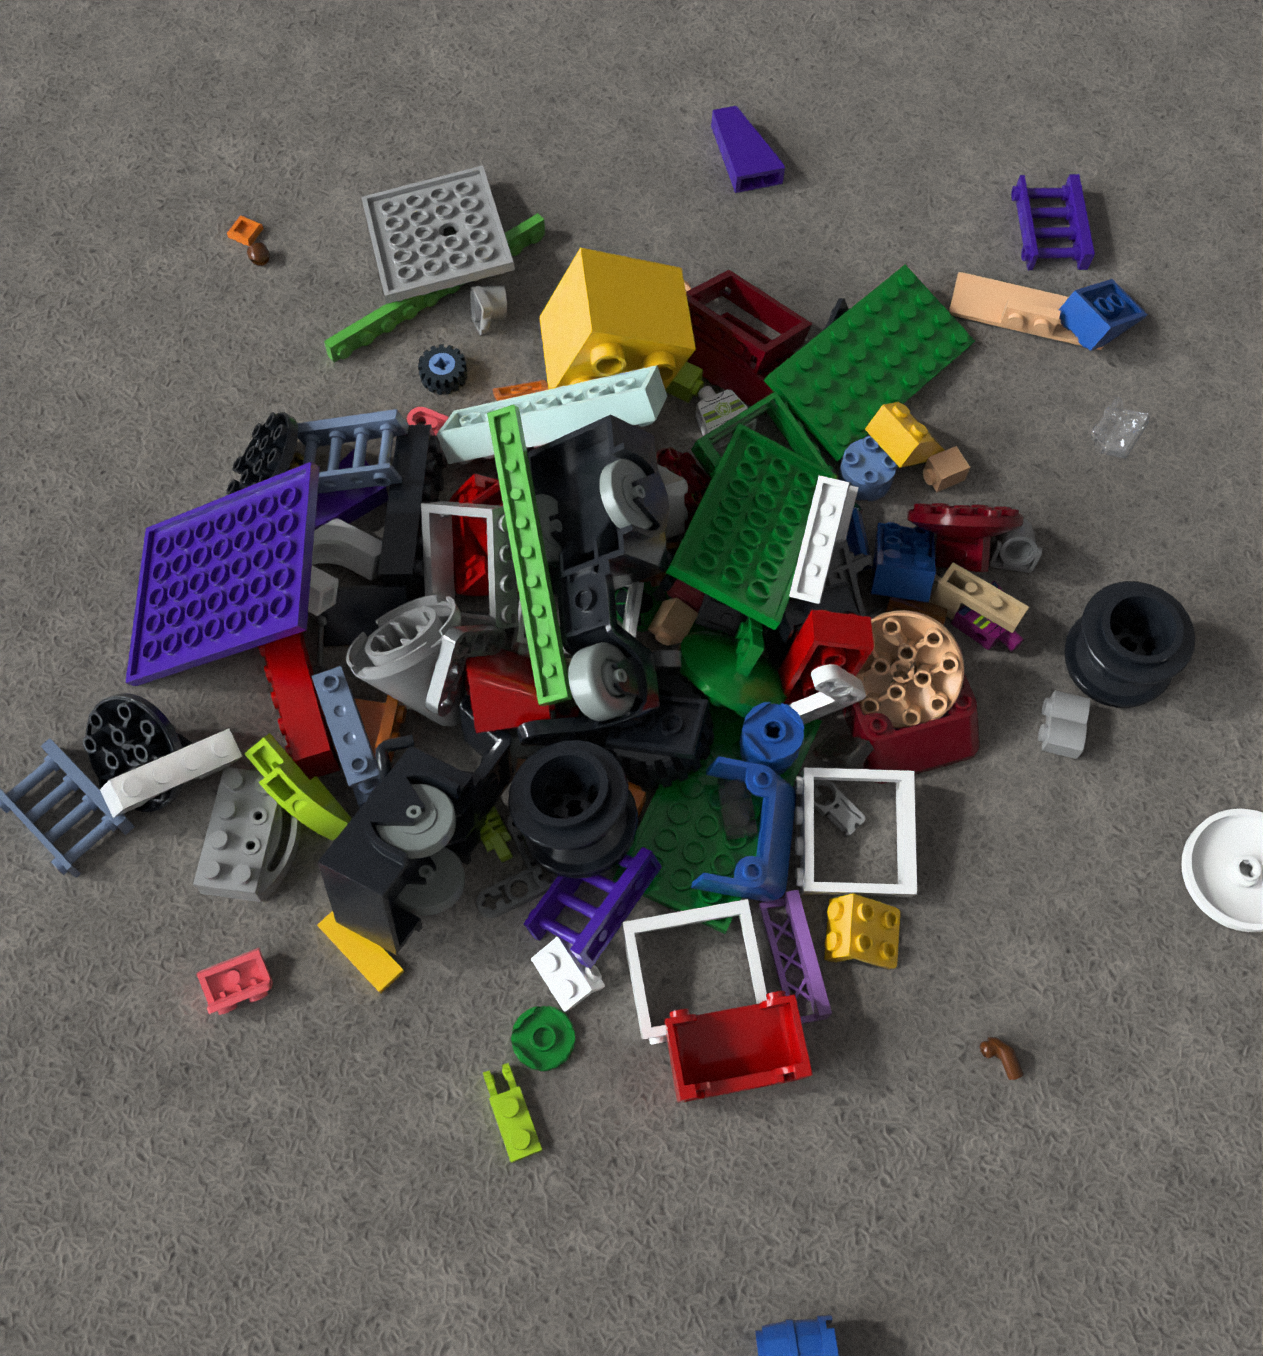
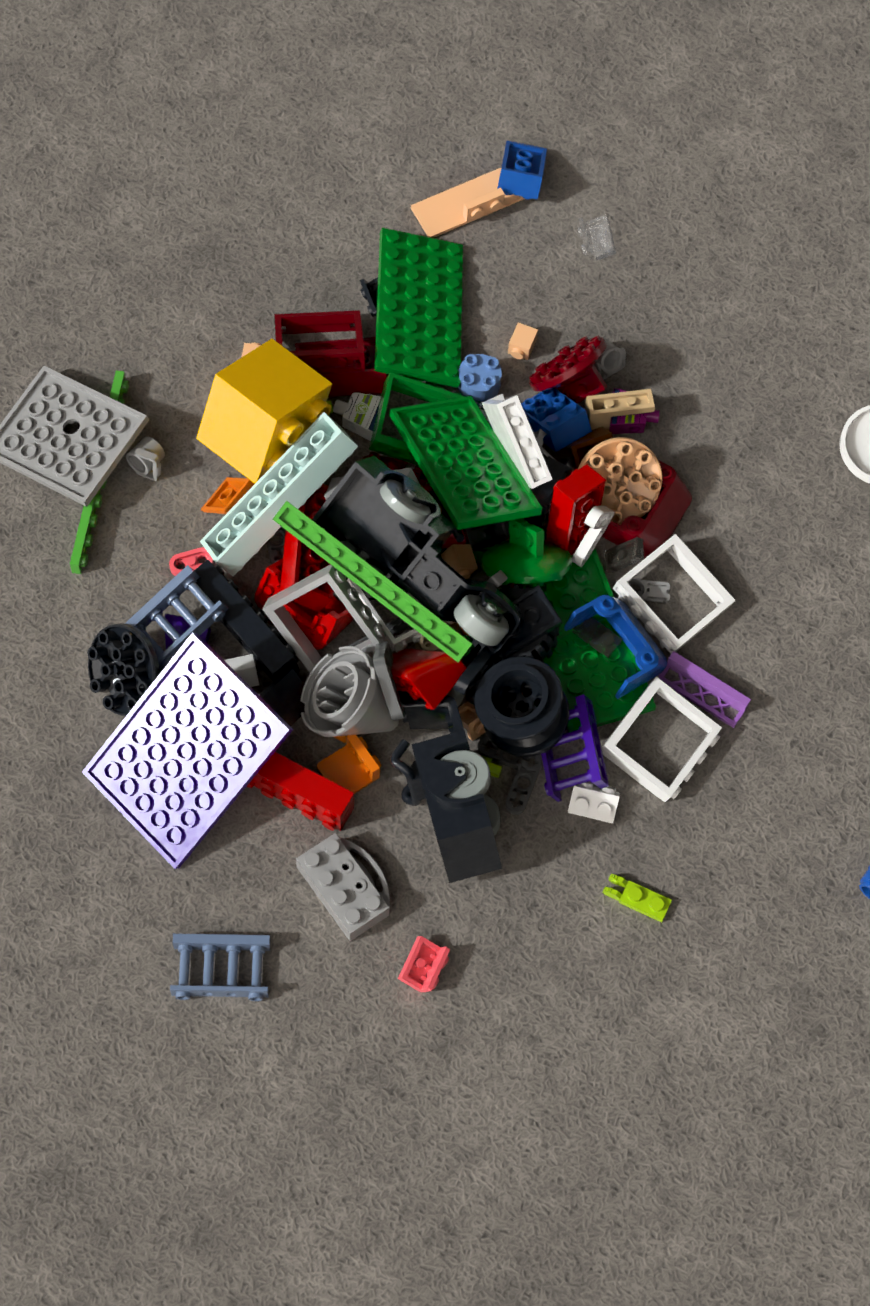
camera: 45 degrees left, 0 degrees up
(128, 734) = (237, 891): black bracket -> none
(172, 770) = (283, 867): white arch -> none
(293, 791) = (352, 833): lime slope -> none
(348, 732) = (368, 783): sand blue fence -> none
(365, 955) = (471, 889): yellow tile -> none
(432, 370) = (161, 529): black wheel -> none
(543, 1050) = (615, 847): green tile -> none
(737, 1048) = (723, 757): red windscreen -> none
(744, 152) = (199, 224): dark purple slope -> none
(782, 725) = (586, 578): blue piece -> none
(862, 931) = (722, 646): yellow bracket -> none
(902, 435) = (486, 341): yellow slope -> none
(1005, 1053) = (843, 647): reddish brown arm -> none
(1064, 724) = (723, 441): light grey brick -> none
(1074, 211) = (442, 110): dark purple fence -> none
(1116, 667) = (714, 384): black wheel -> none

